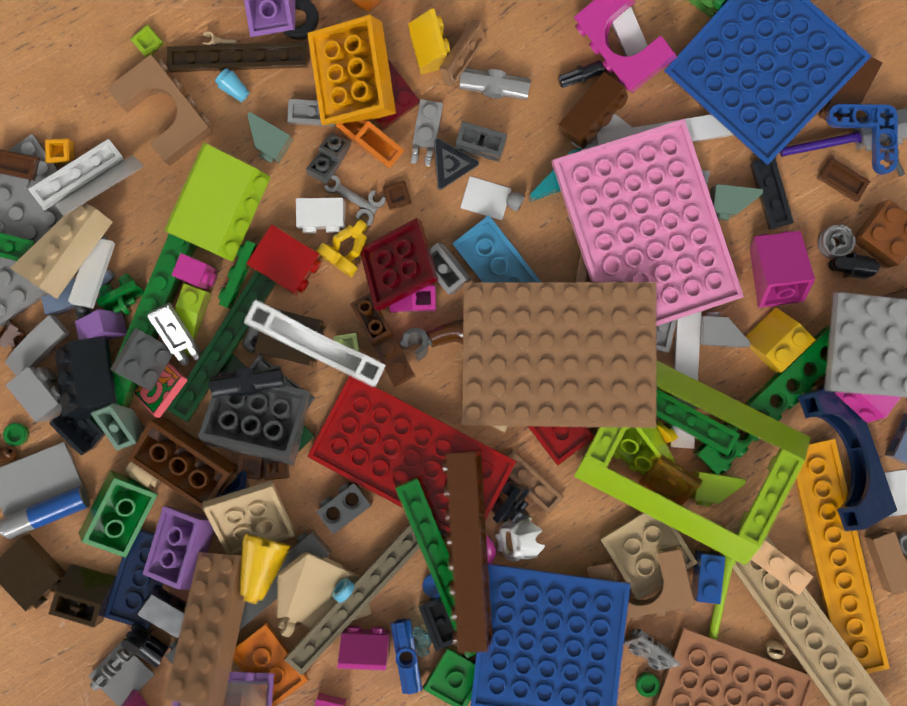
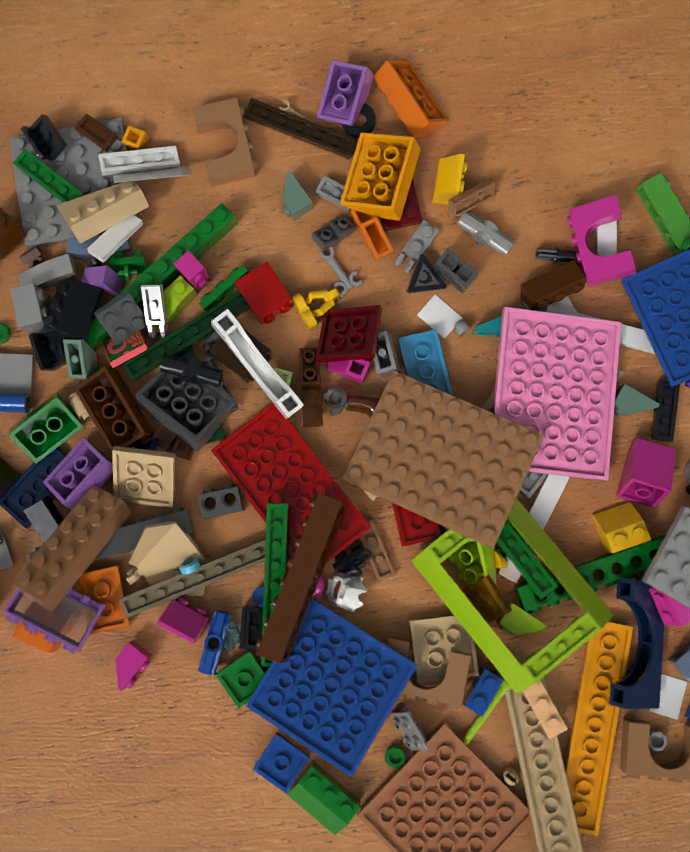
camera: 30 degrees right, 5 degrees down
(145, 645) = (17, 538): black arm -> none
(147, 41) = (238, 88): lime tile -> none
(217, 202) = (234, 226): lime slope -> none
(232, 85) = (285, 145): medium azure cone -> none
(260, 566) = (134, 516): yellow cone -> none
(320, 214) = (307, 271): white piece -> none
(397, 195) = (372, 283): reddish brown tile -> none
(721, 332) = (578, 501): light grey slope -> none

